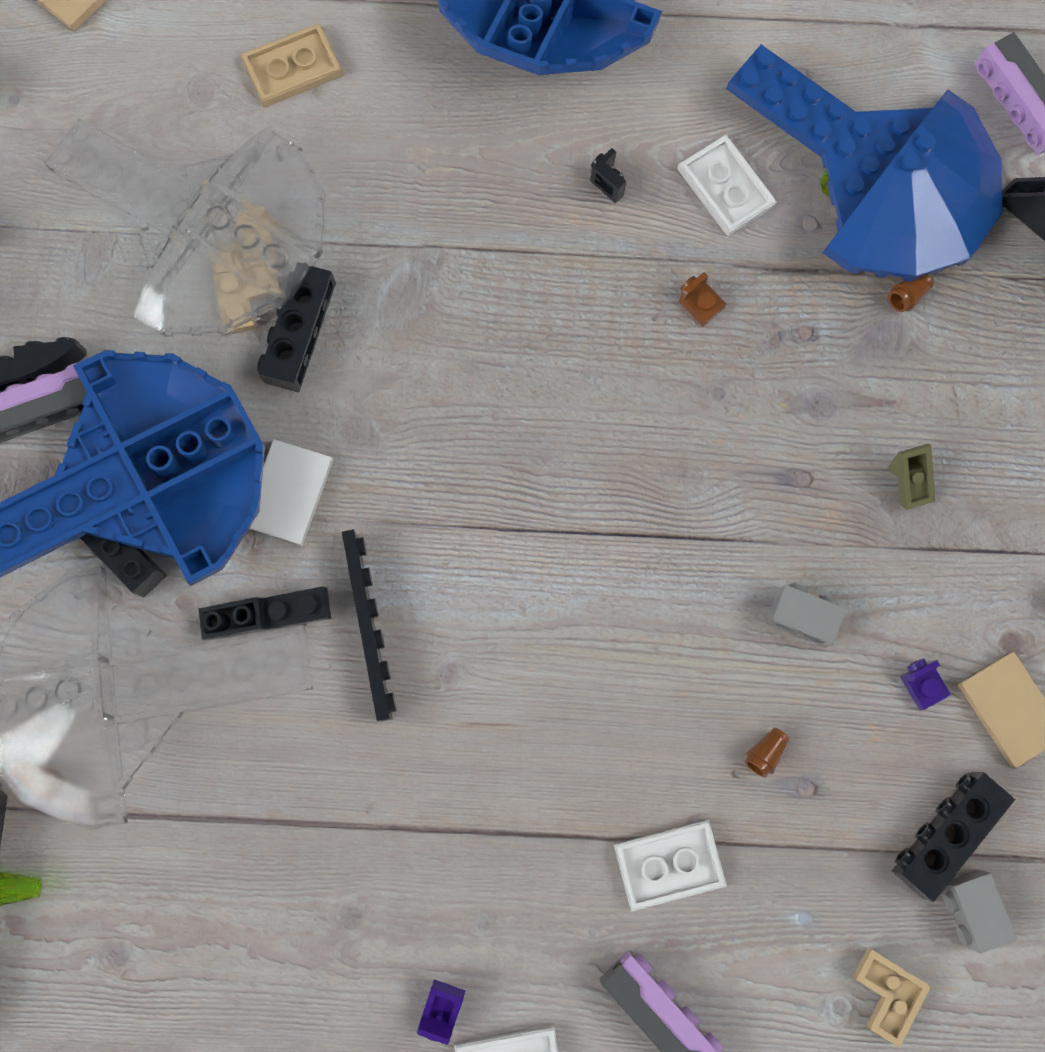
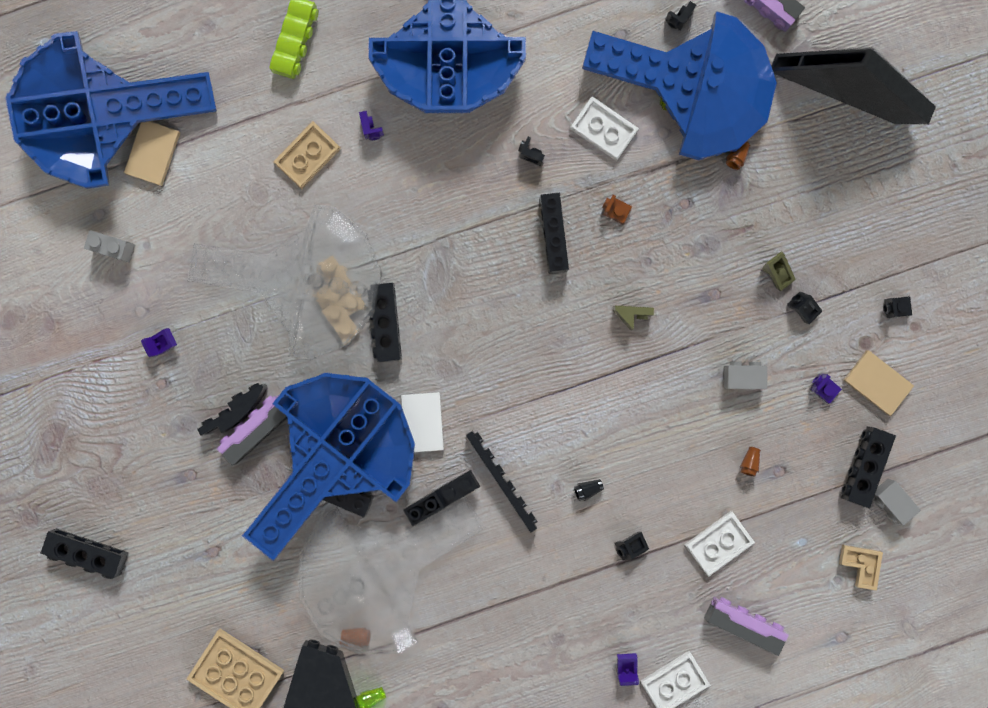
camera: 20 degrees left, 10 degrees up
(392, 59) = (367, 123): none -> dark purple bracket
(495, 693) = (588, 489): none -> black cone
(527, 811) = (631, 546): none -> black bracket
(596, 296) = (554, 233): none -> black brick
(660, 449) = (627, 314): none -> olive slope
(893, 80) = (679, 20): none -> black bracket
(936, 547) = (805, 307): none -> black bracket

